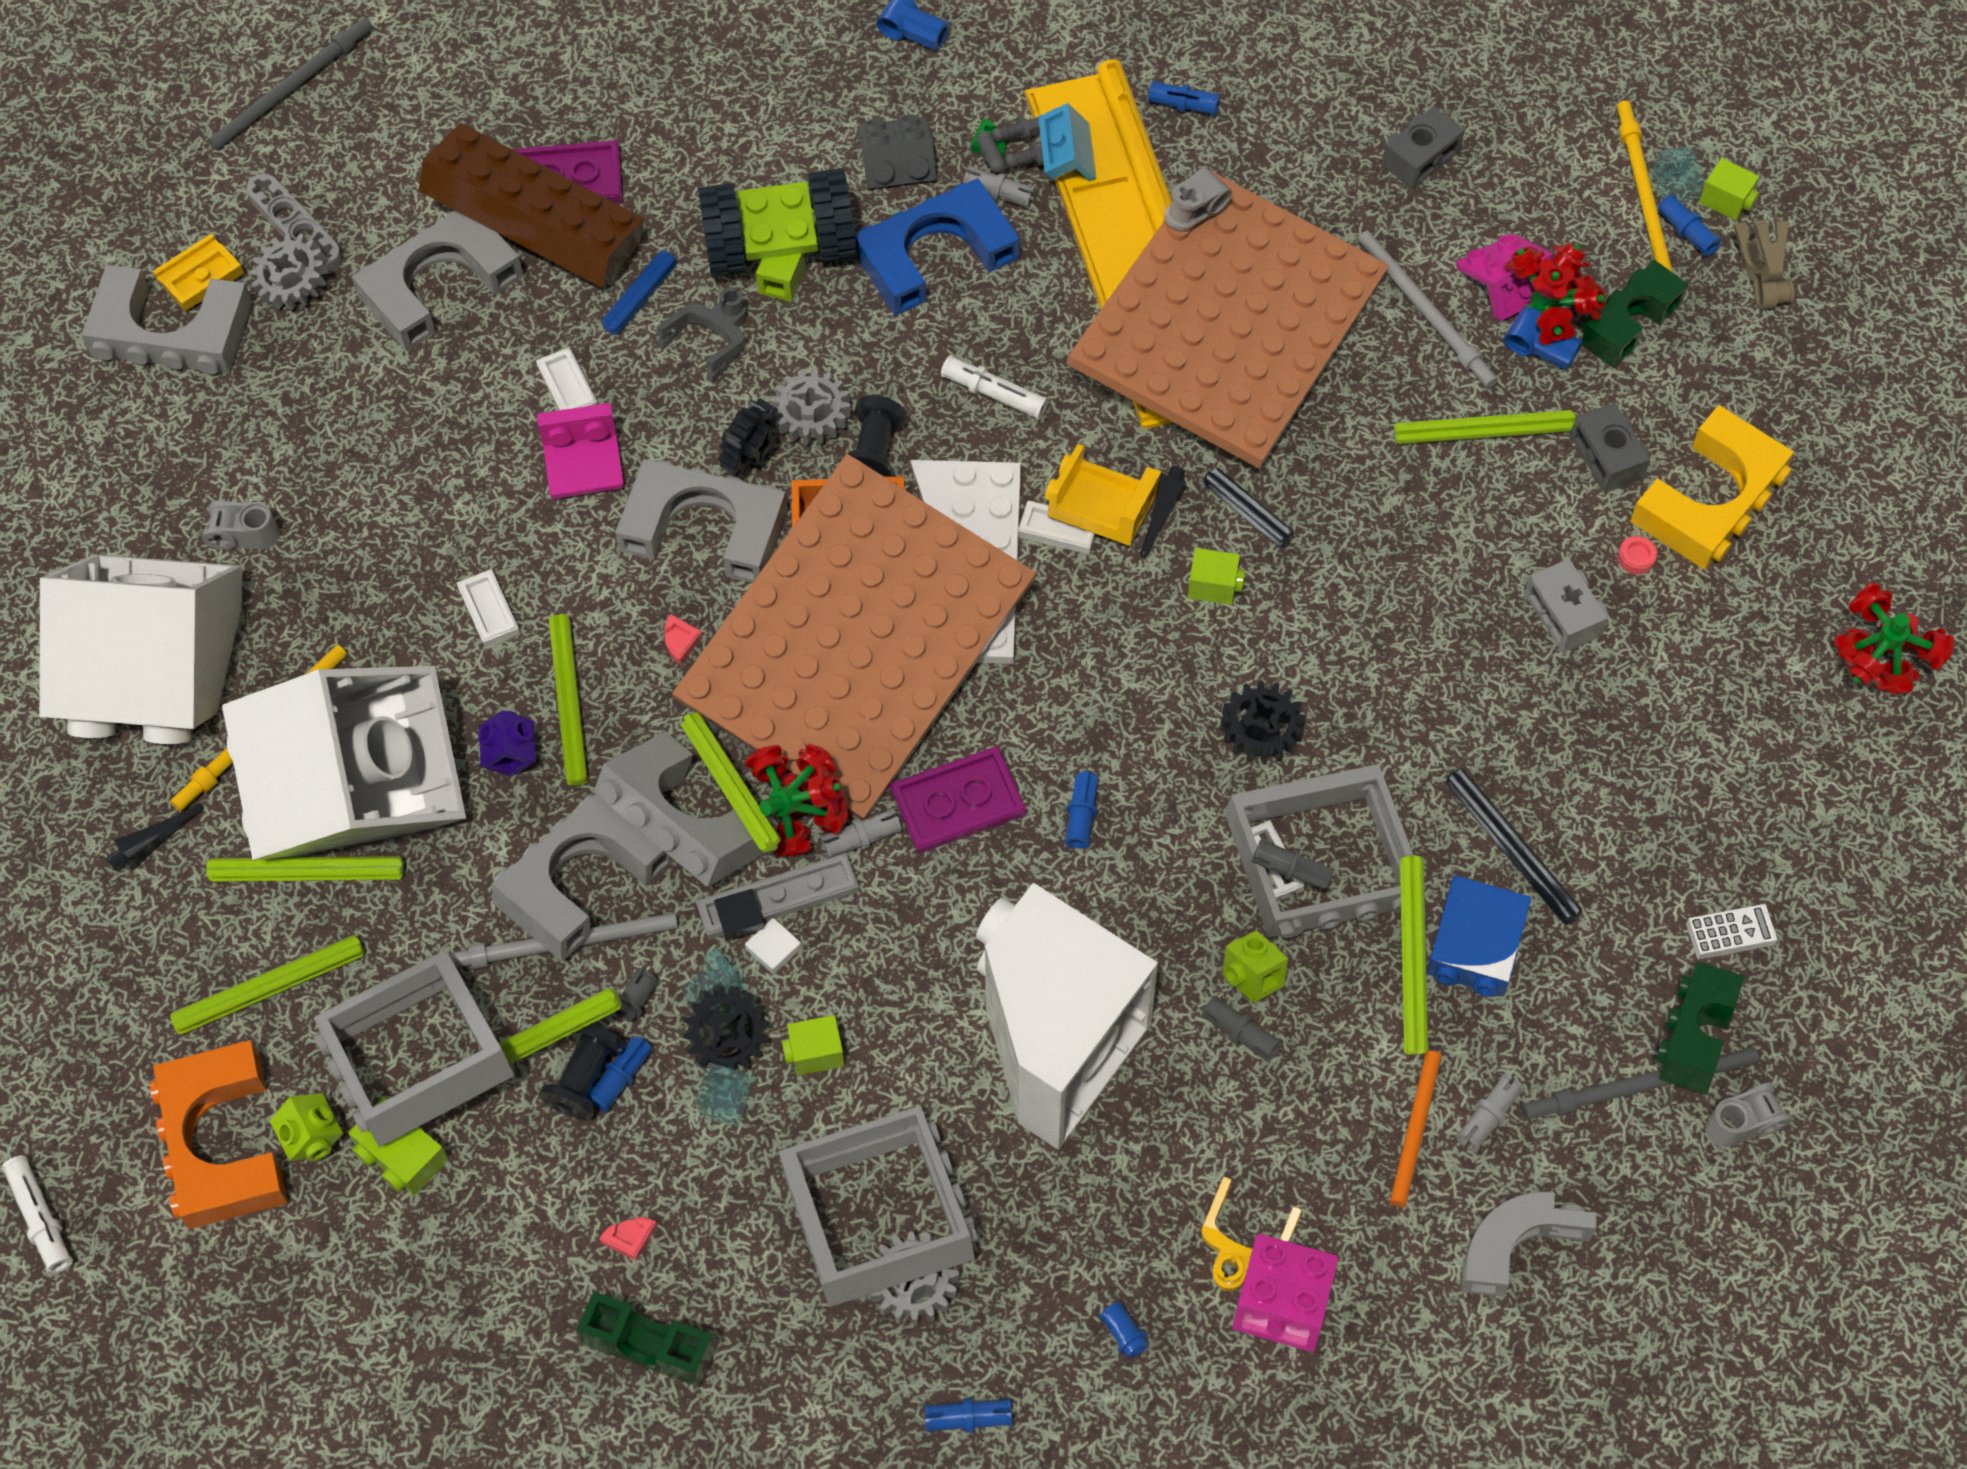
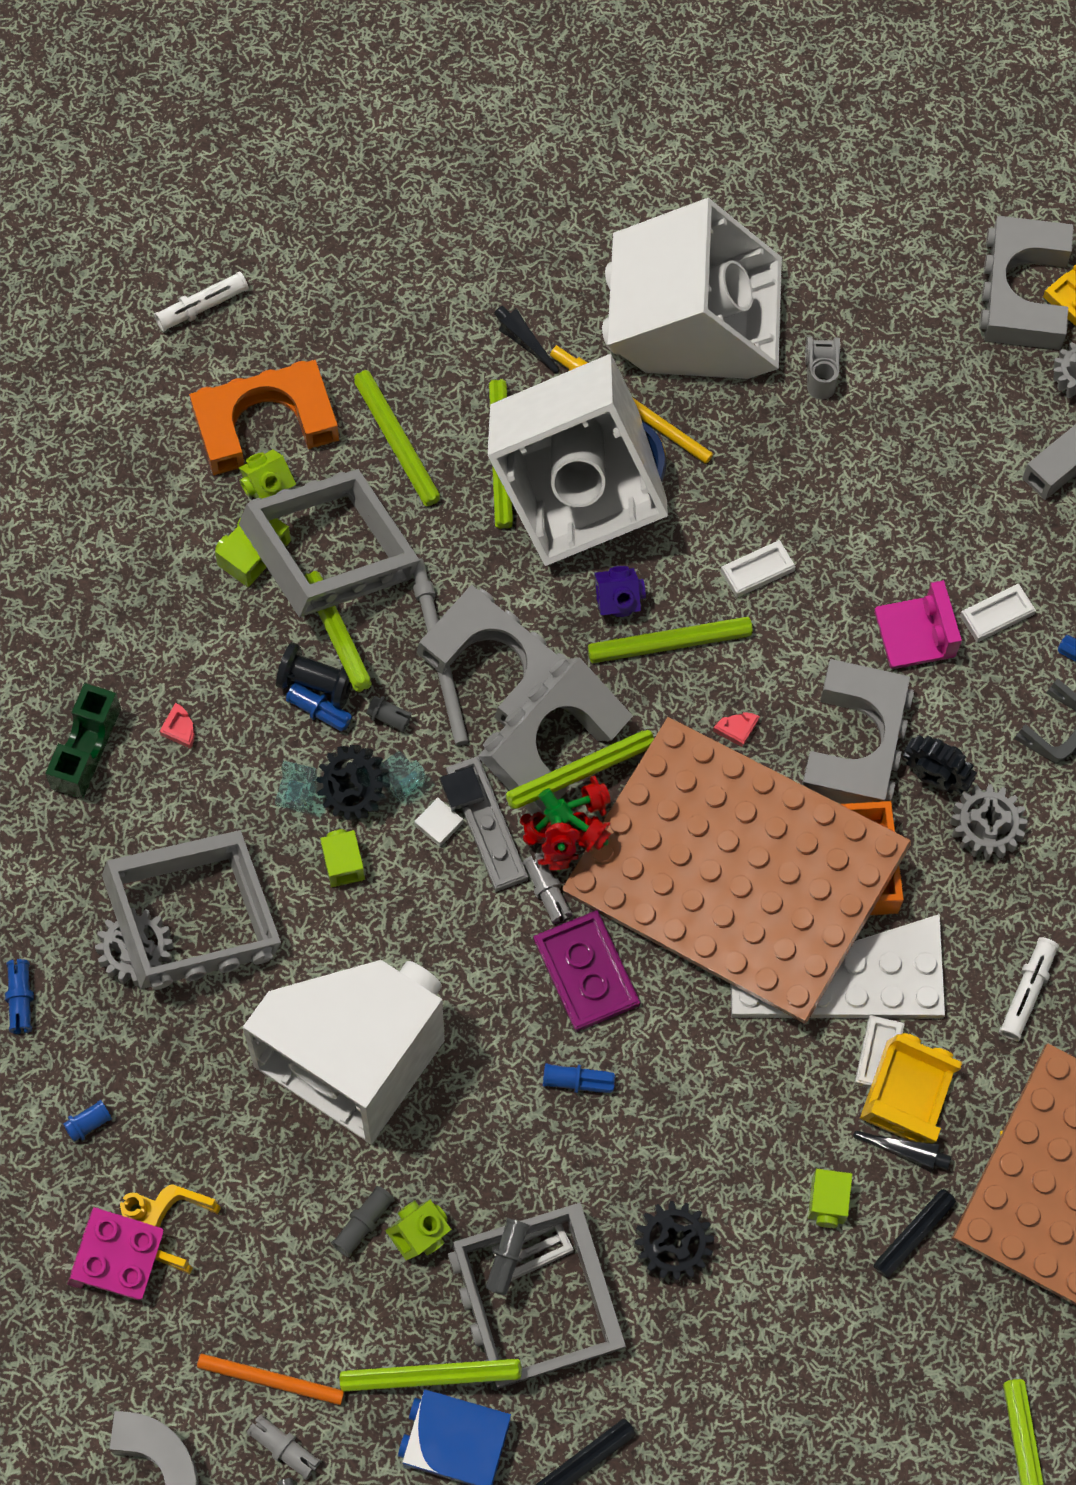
camera: 85 degrees right, 5 degrees up
(878, 418) = (953, 877): black piece -> none

